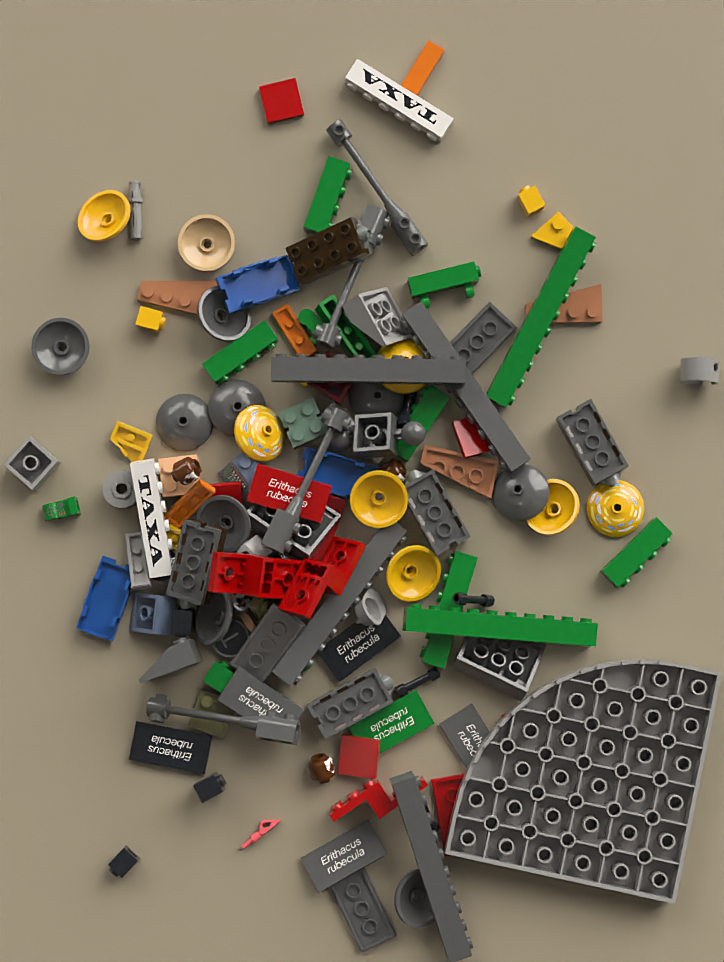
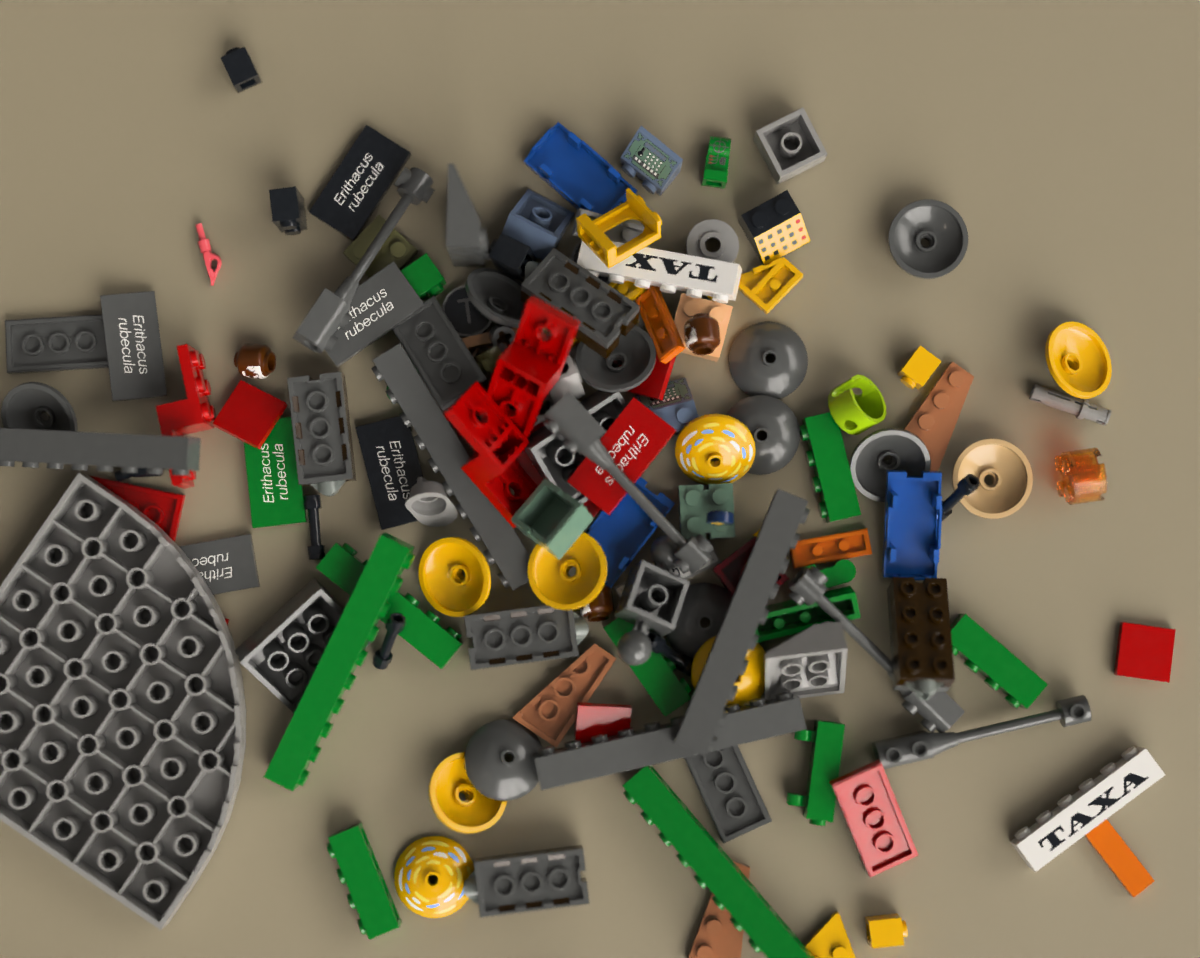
camera: 110 degrees right, 0 degrees up
(80, 553) = (650, 162): none -> slope
(92, 452) = (775, 228): none -> slope
(117, 551) = (633, 209): none -> yellow panel
(181, 185) = (1081, 476): none -> clear orange brick
(196, 349) = (856, 412): none -> lime piece
(219, 257) = (965, 487): none -> black bar
(305, 412) = (720, 518): none -> dark blue tile
(349, 521) = (552, 519): none -> sand green piece
(461, 235) = (874, 818): none -> tile

